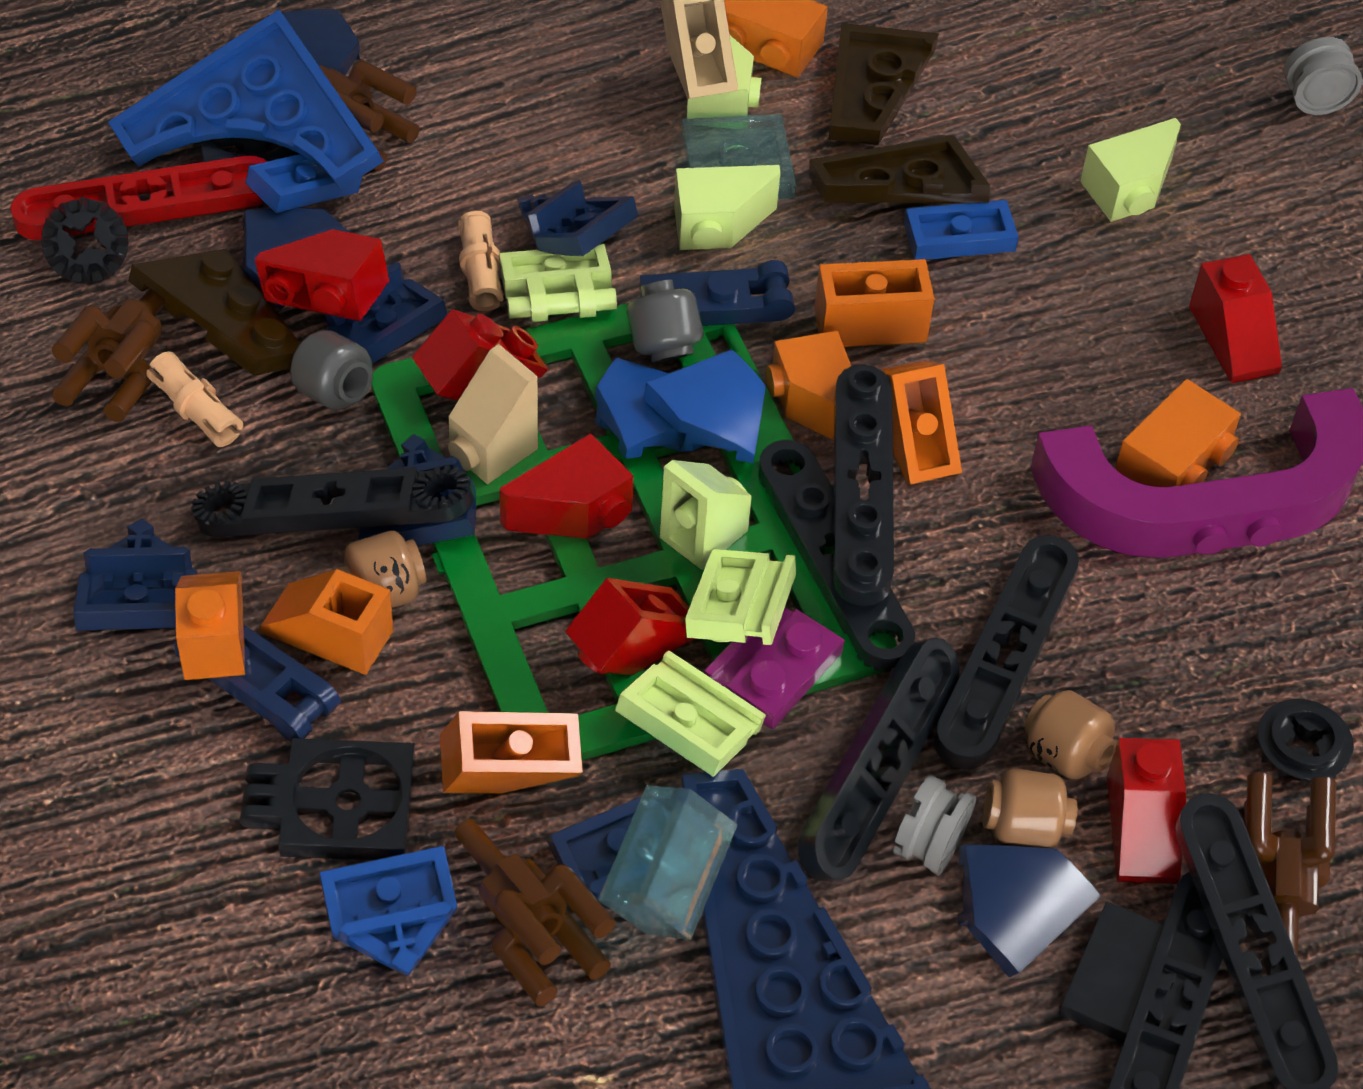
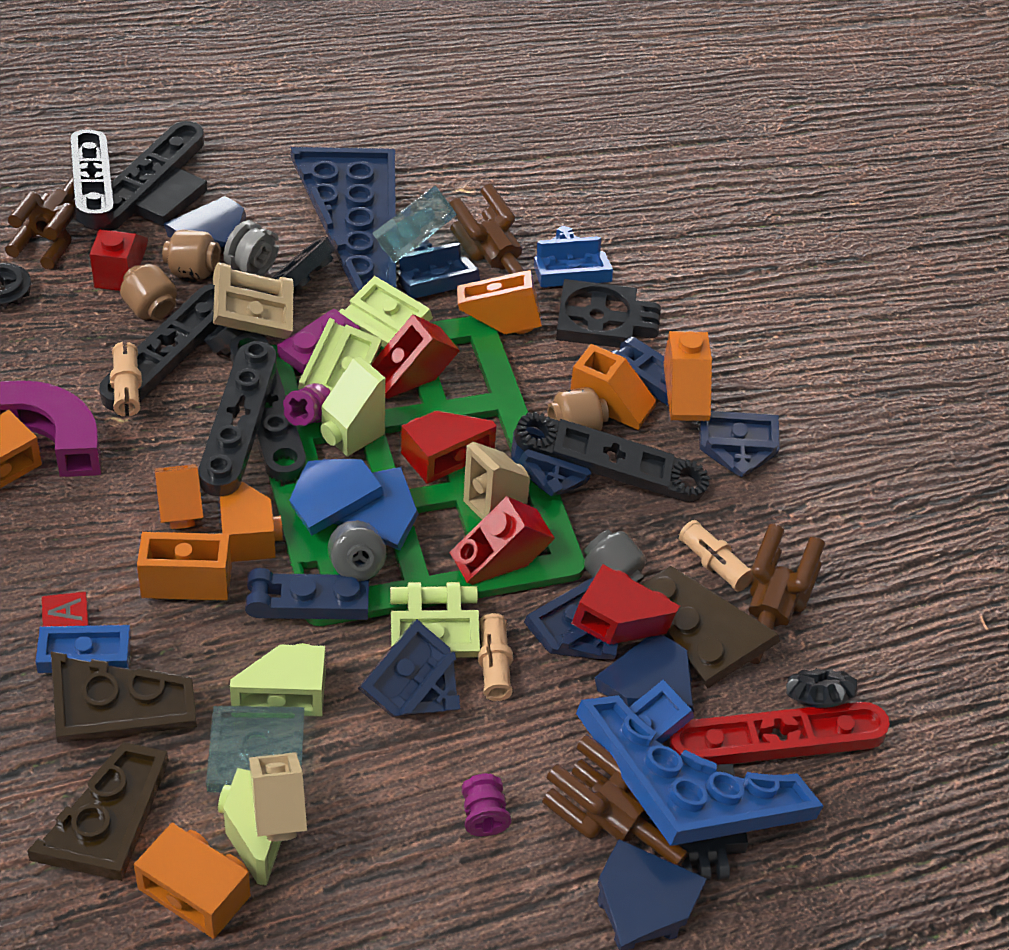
camera: 175 degrees left, 5 degrees down
(480, 105) = (485, 805): none -> magenta bush
(772, 523) = (305, 405): none -> magenta bush
(890, 655) = (252, 309): none -> tan plate
(998, 275) = (65, 609): none -> red tile
(1041, 546) = (125, 379): none -> light nougat pin

